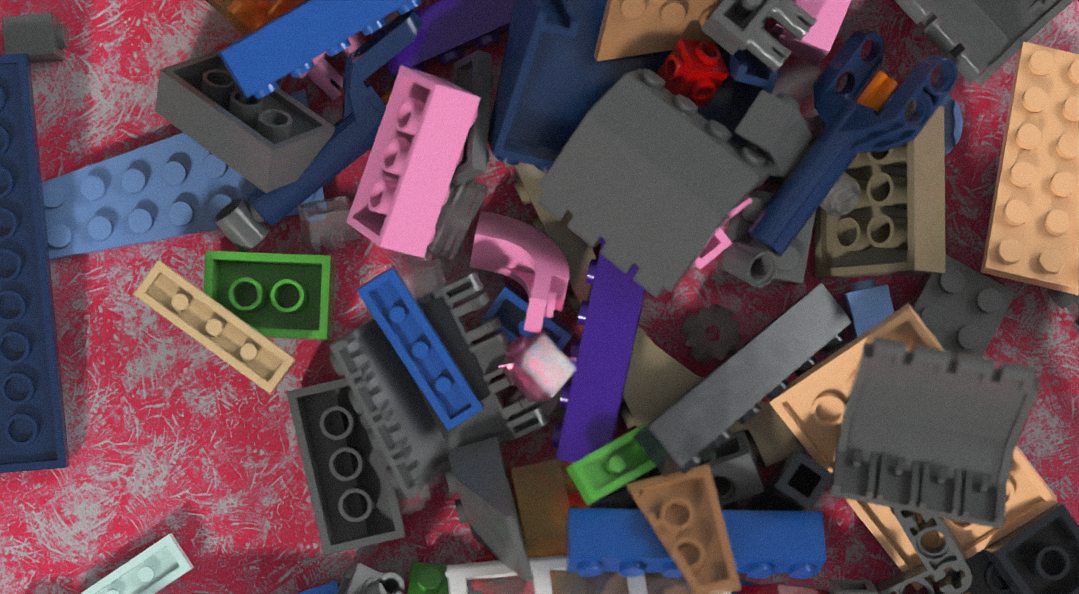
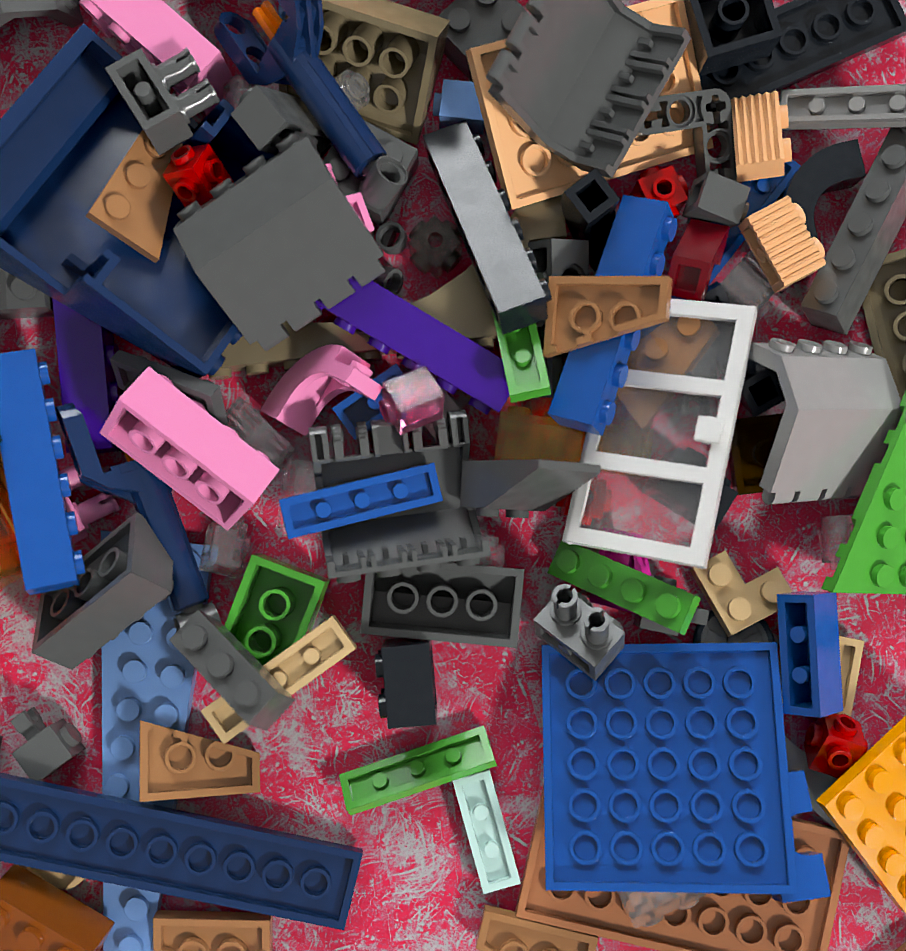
camera: 70 degrees left, 0 degrees up
(68, 112) = (45, 747): none -> dark grey brick
(97, 264) = (192, 766): none -> medium nougat wing
(167, 495) = (417, 770): none -> bright green plate
(208, 280) = (232, 670): none -> dark grey brick
(252, 458) = (408, 683): none -> black brick
(664, 302) = (395, 279): none -> dark grey hinge
(707, 278) = (386, 235): none -> dark grey hinge
(856, 562) = (672, 186): none -> red brick

